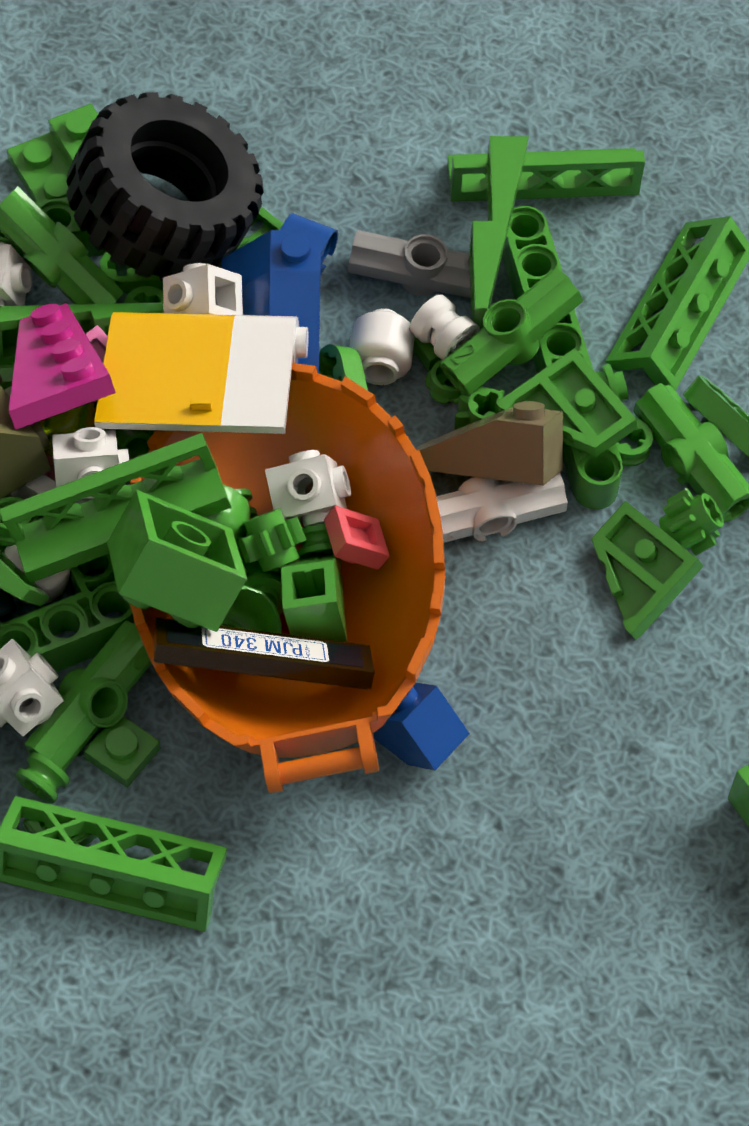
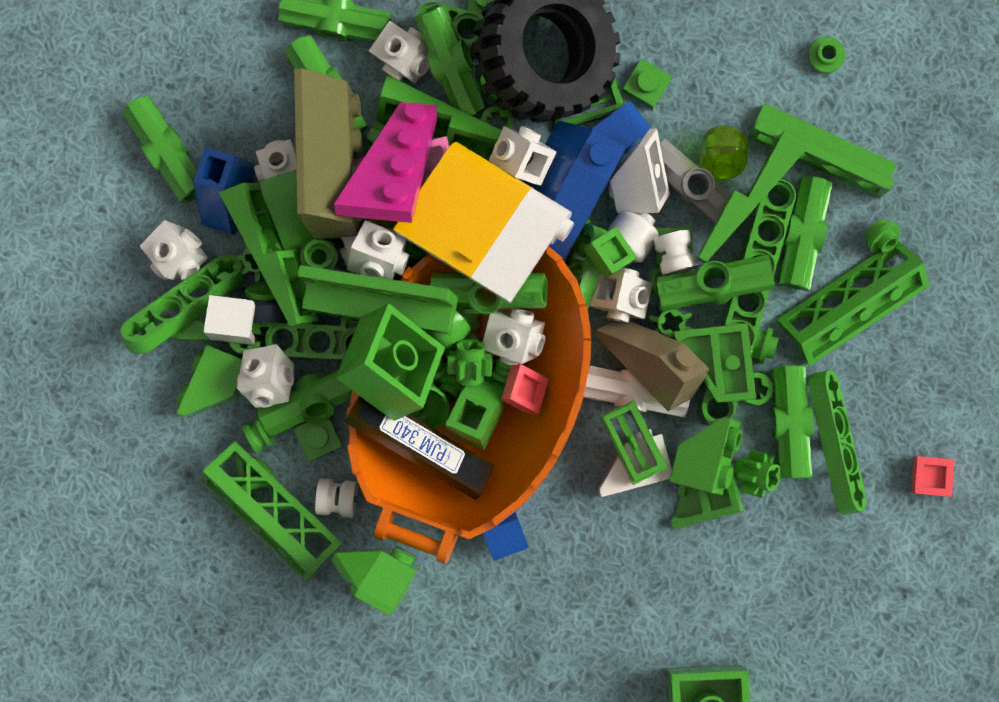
camera: 35 degrees right, 25 degrees up
(188, 801) = (328, 494): none -> white wheel
(296, 829) = (378, 575): none -> bright green wedge
(301, 195) = (647, 83): none -> bright green plate
(302, 427) = (472, 295): none -> bright green piece
(353, 273) = (641, 179): none -> white slope
(368, 354) = (610, 252): none -> bright green plate
(415, 401) = (622, 295): none -> white brick
(434, 211) = (724, 152): none -> clear neon green head
(486, 91) = (822, 64): none -> bright green plate
(517, 550) = (618, 413): none -> bright green tile
(546, 581) = (616, 478): none -> white slope
(582, 257) = (805, 233): none -> bright green piece
(618, 520) = (706, 457): none -> bright green slope
(667, 221) = (882, 236): none -> bright green plate

